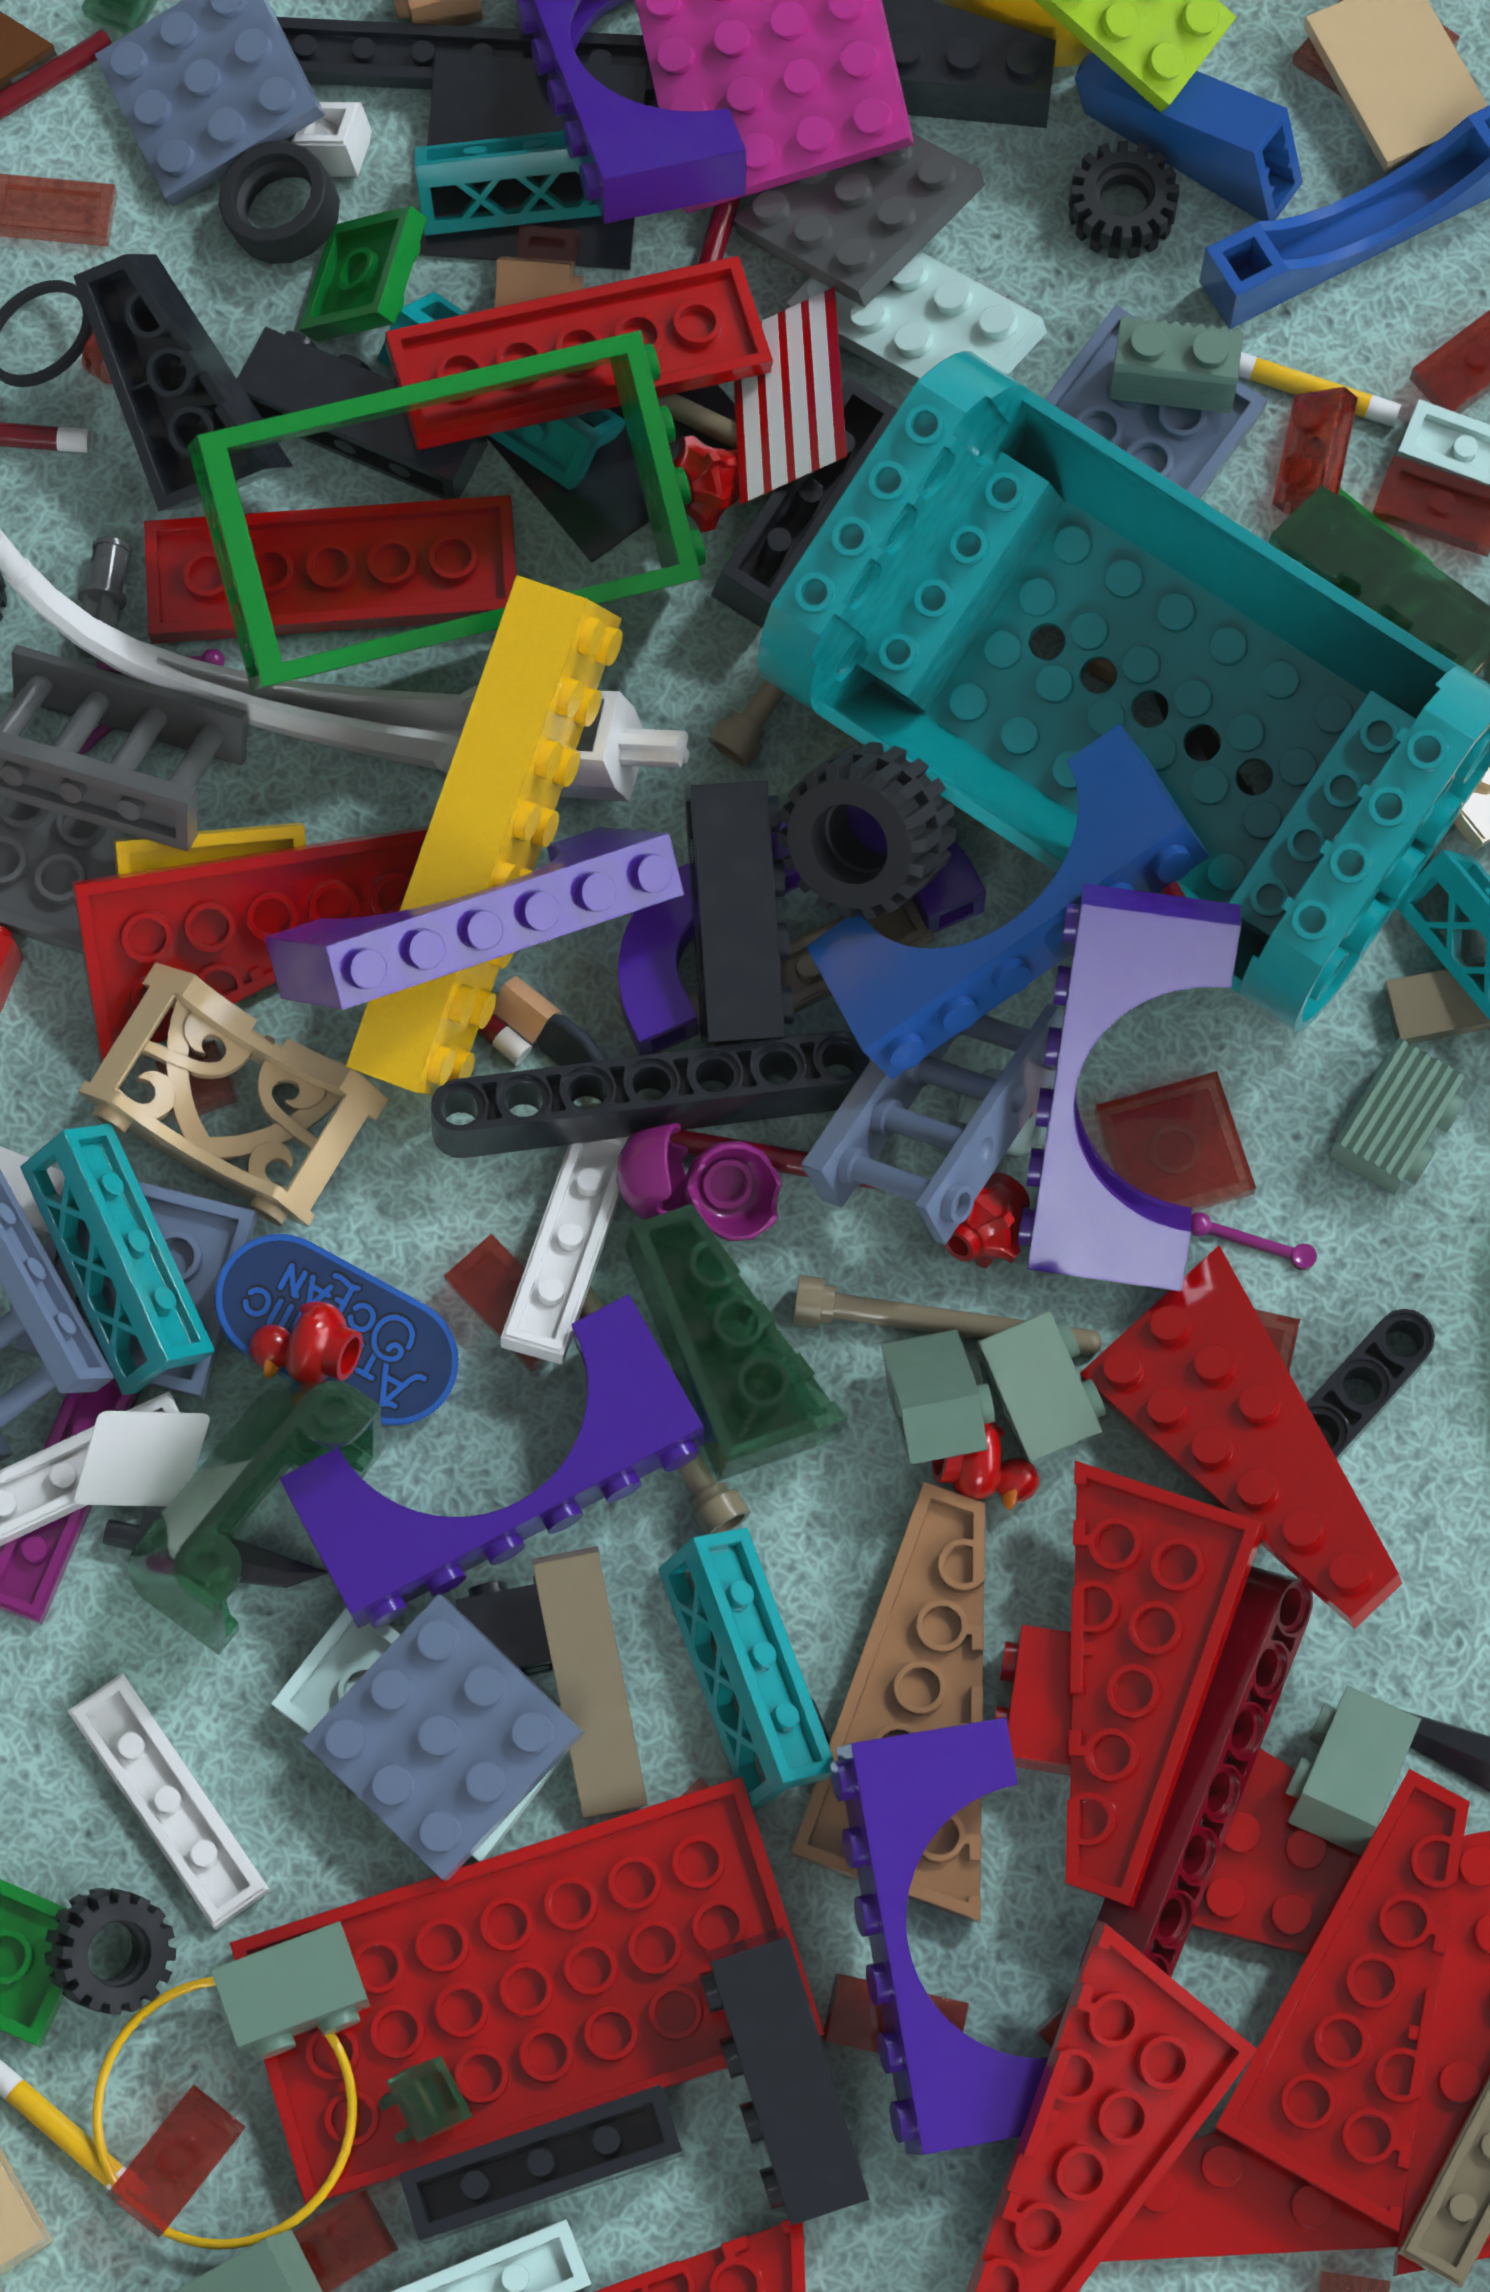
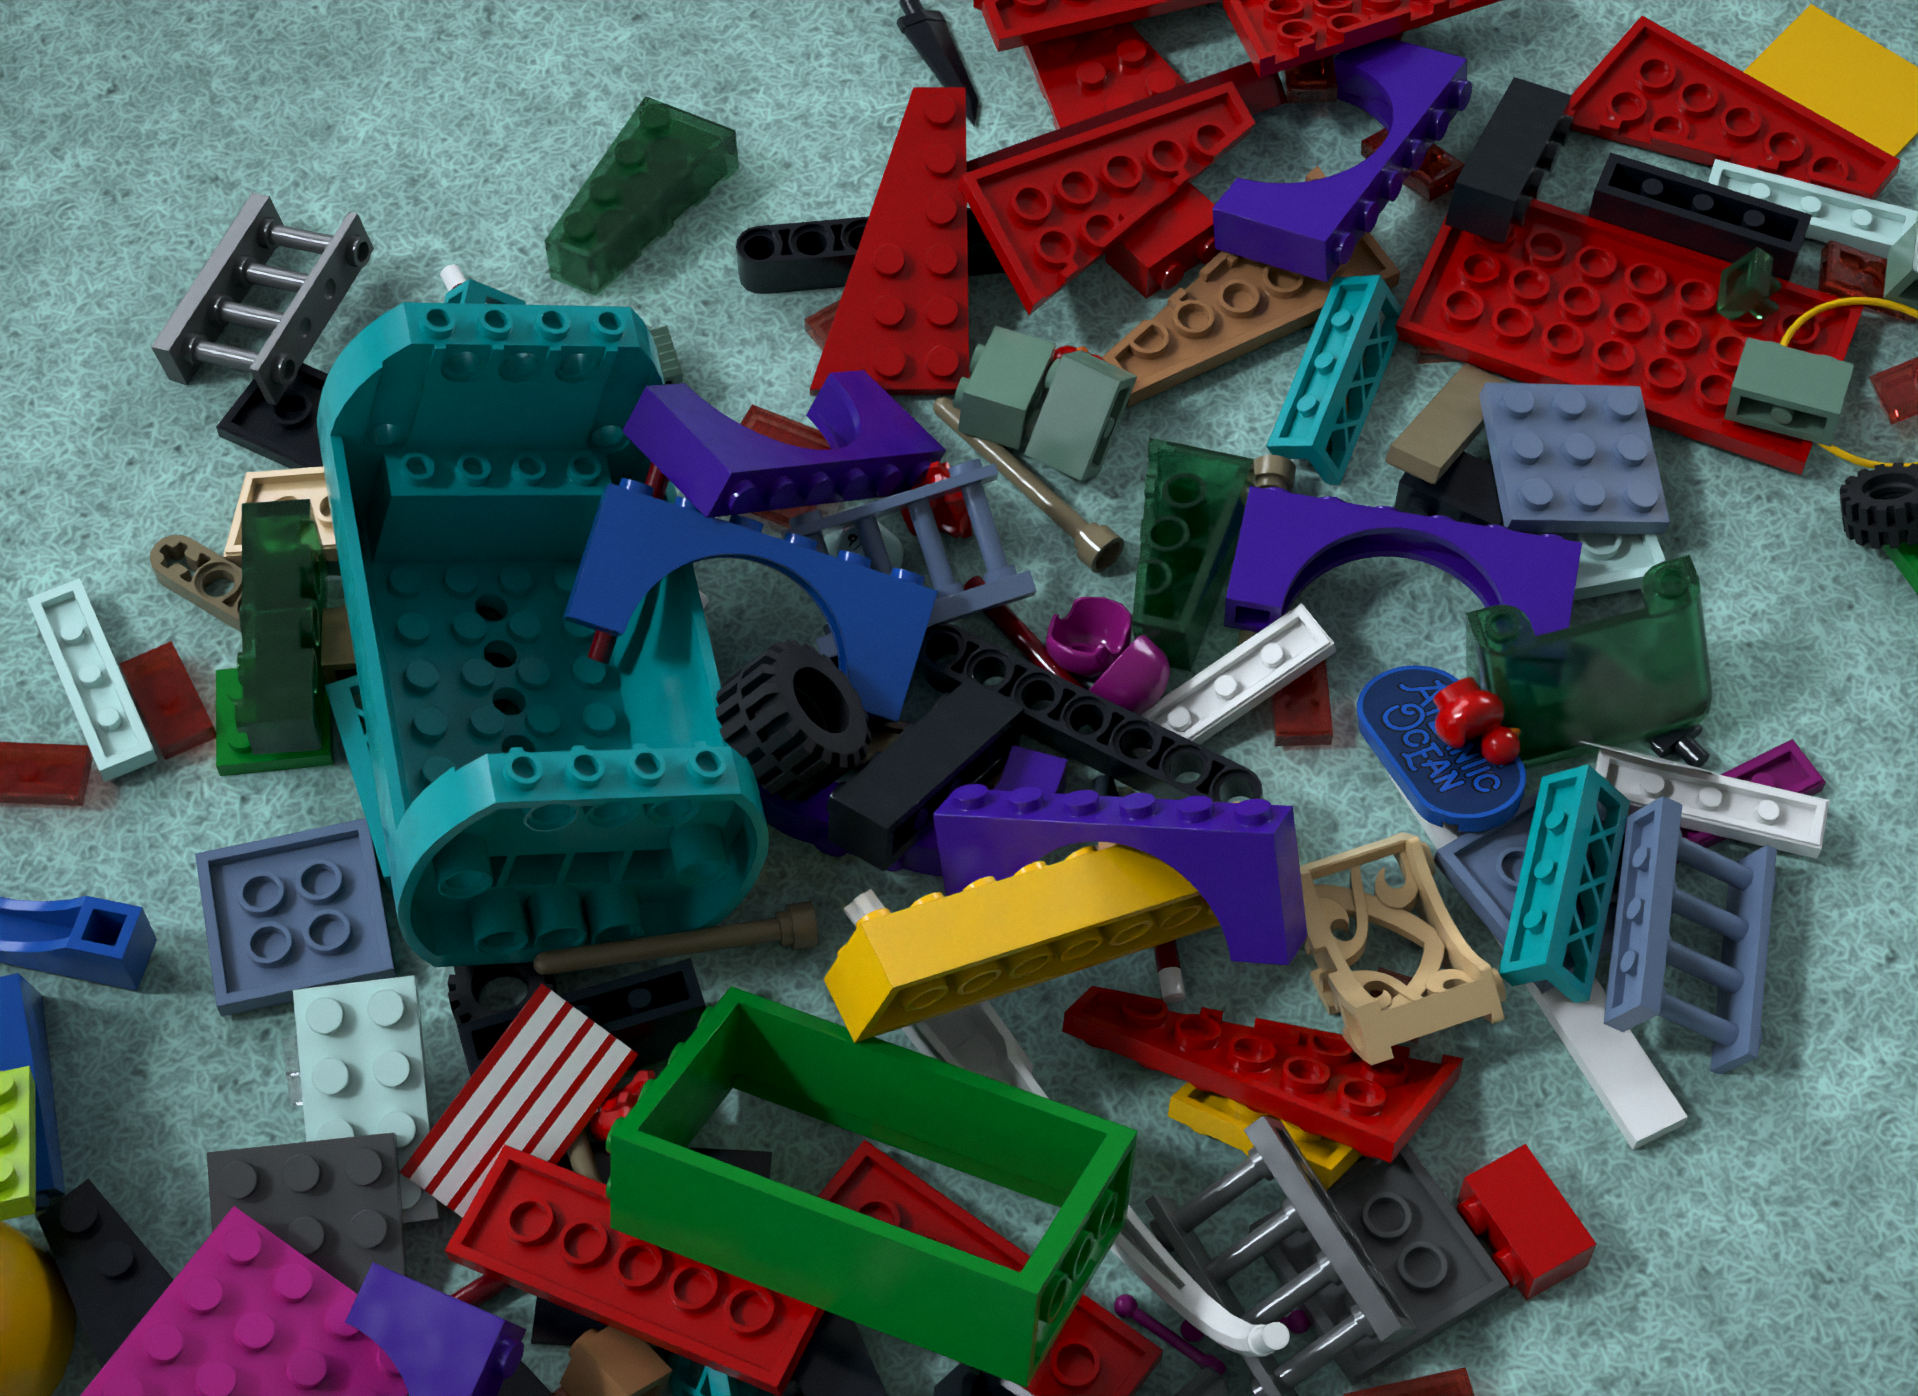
camera: 140 degrees left, 15 degrees down
(169, 1801) = (1781, 583): white tile -> none
(1130, 169) = (107, 1057): black tyre -> none
(1176, 364) = (235, 902): sand green brick -> none
(1299, 382) = (152, 854): yellow bar -> none
(1301, 1257) = (763, 360): magenta hinge -> none
(1314, 446) = (203, 798): clear red plate -> none
(1353, 1769) = (1026, 78): sand green brick -> none

